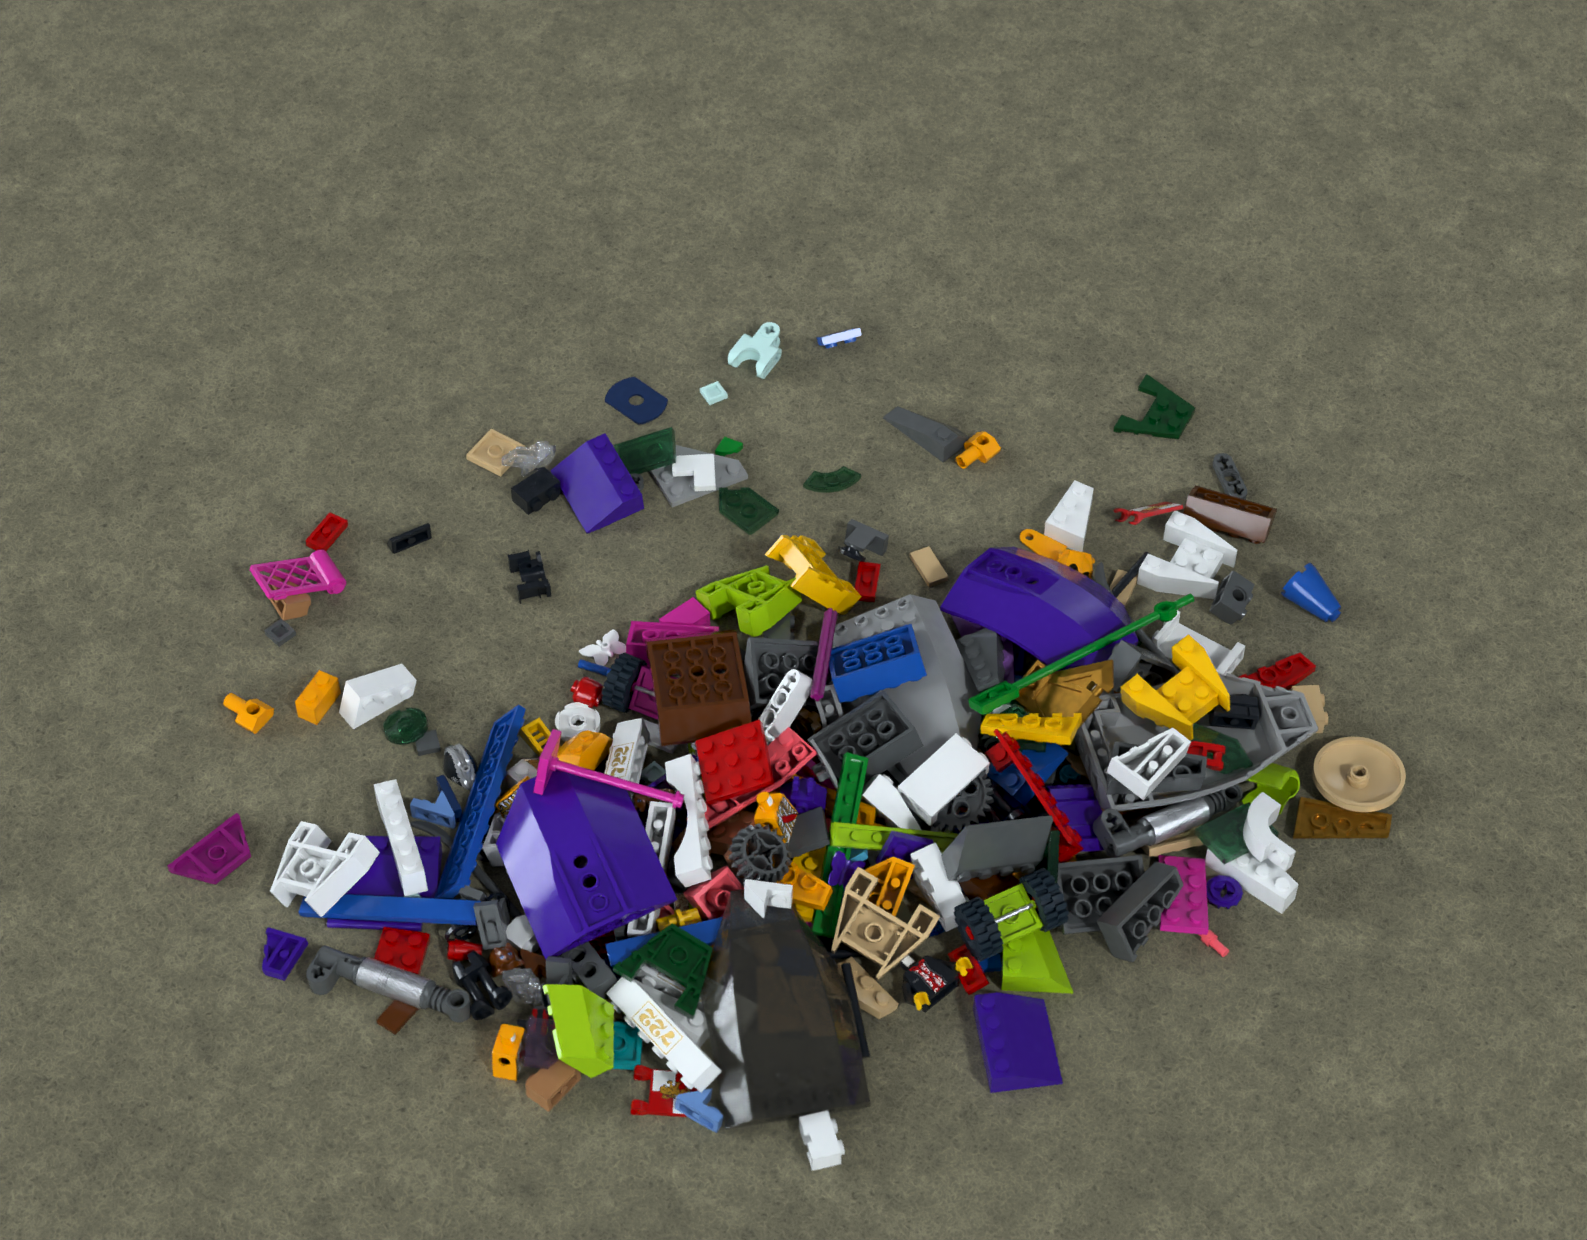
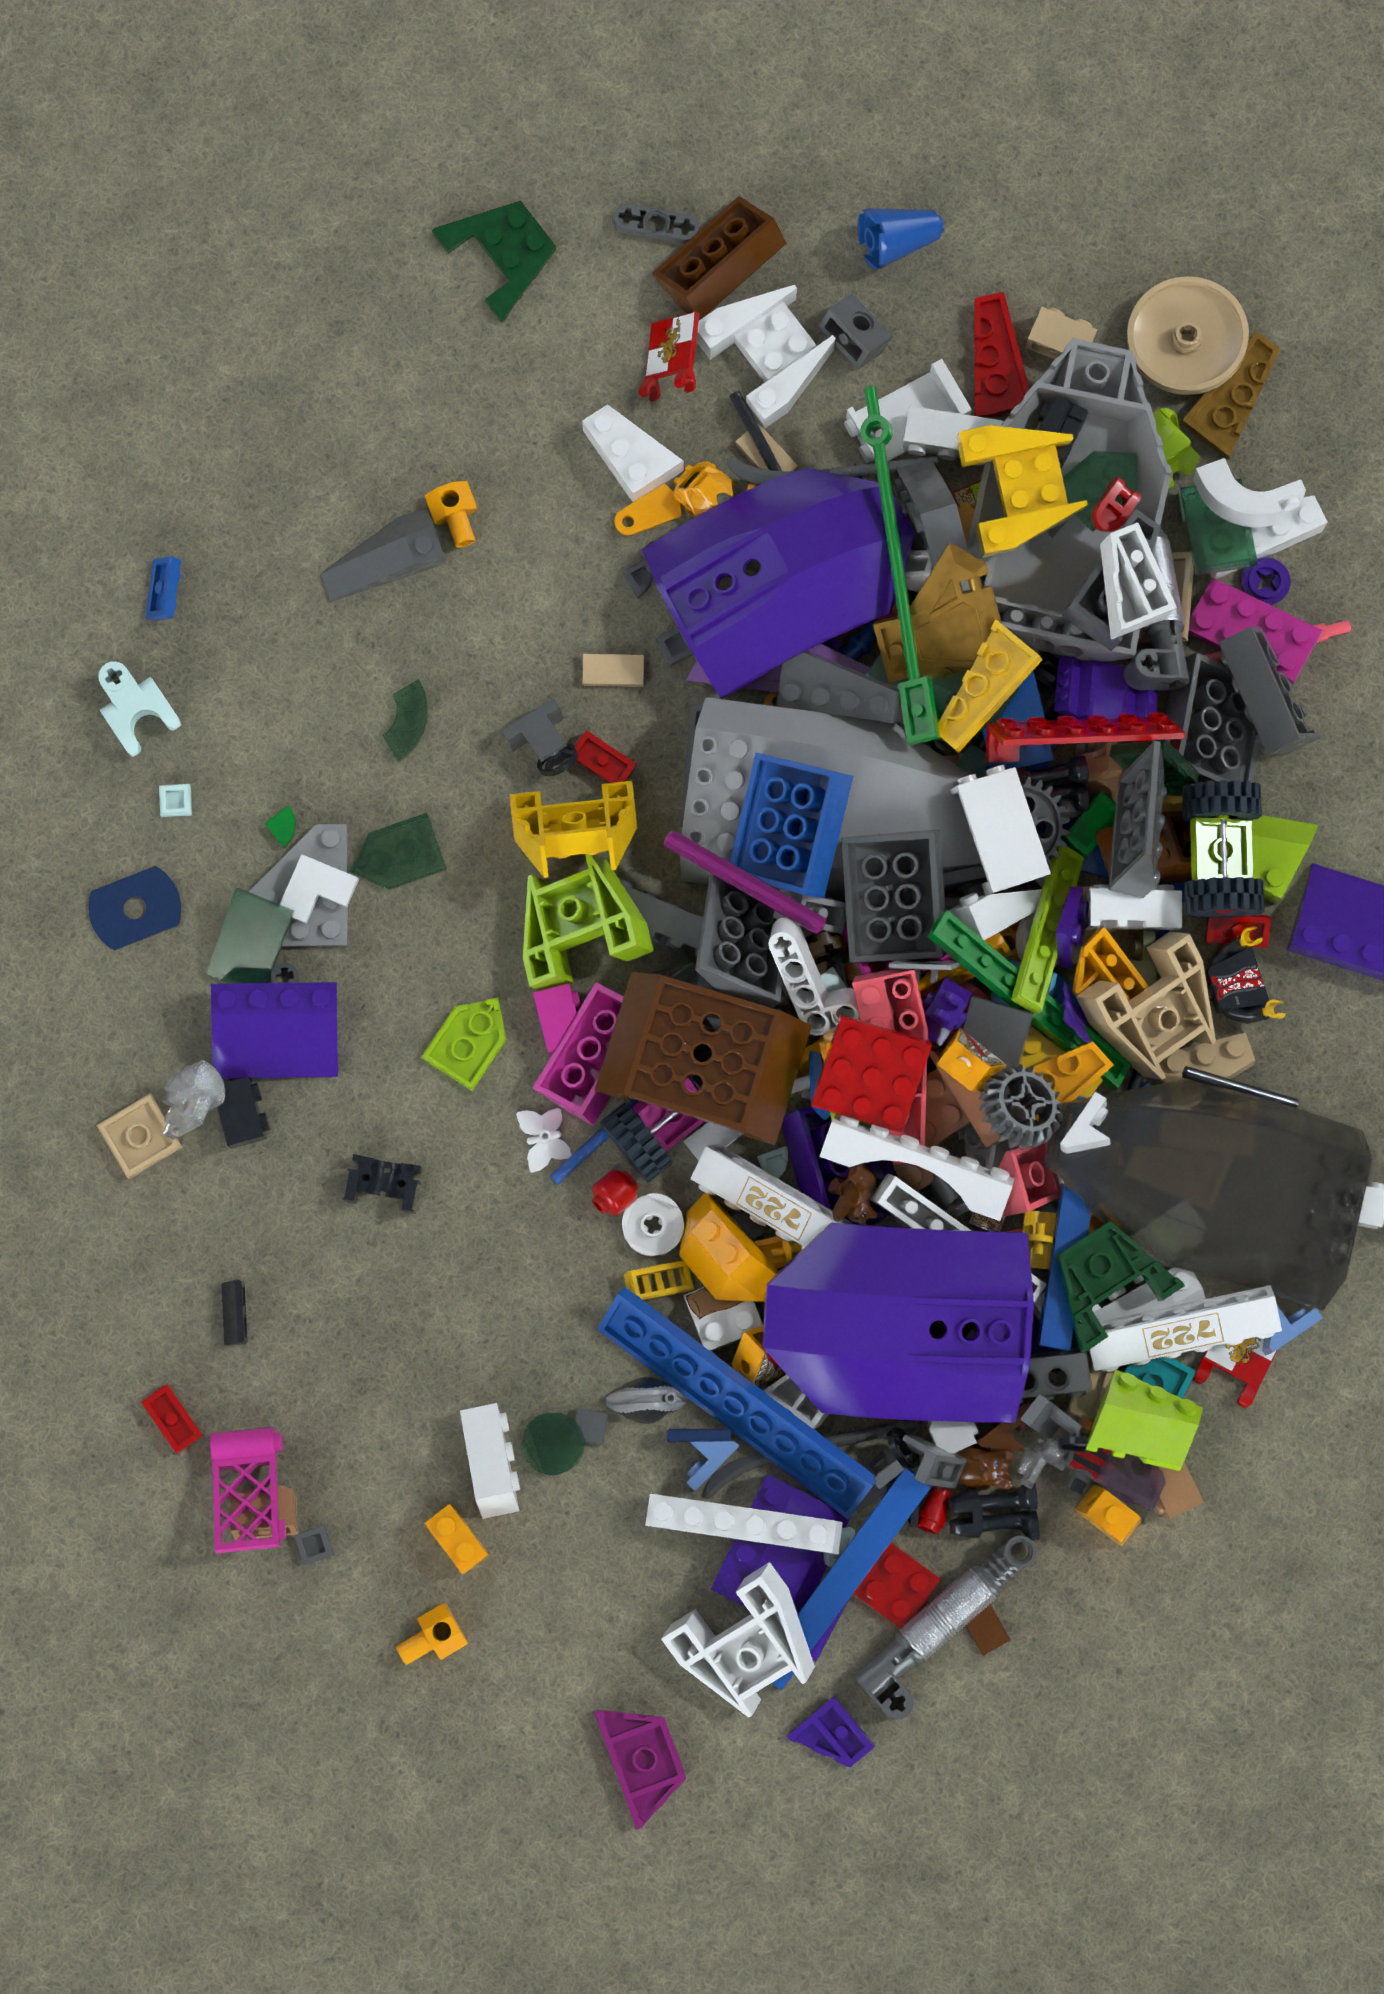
camera: 65 degrees left, 30 degrees up
(550, 762) = (784, 1306): dark pink tile -> none
(644, 586) = (468, 1042): none -> lime tile

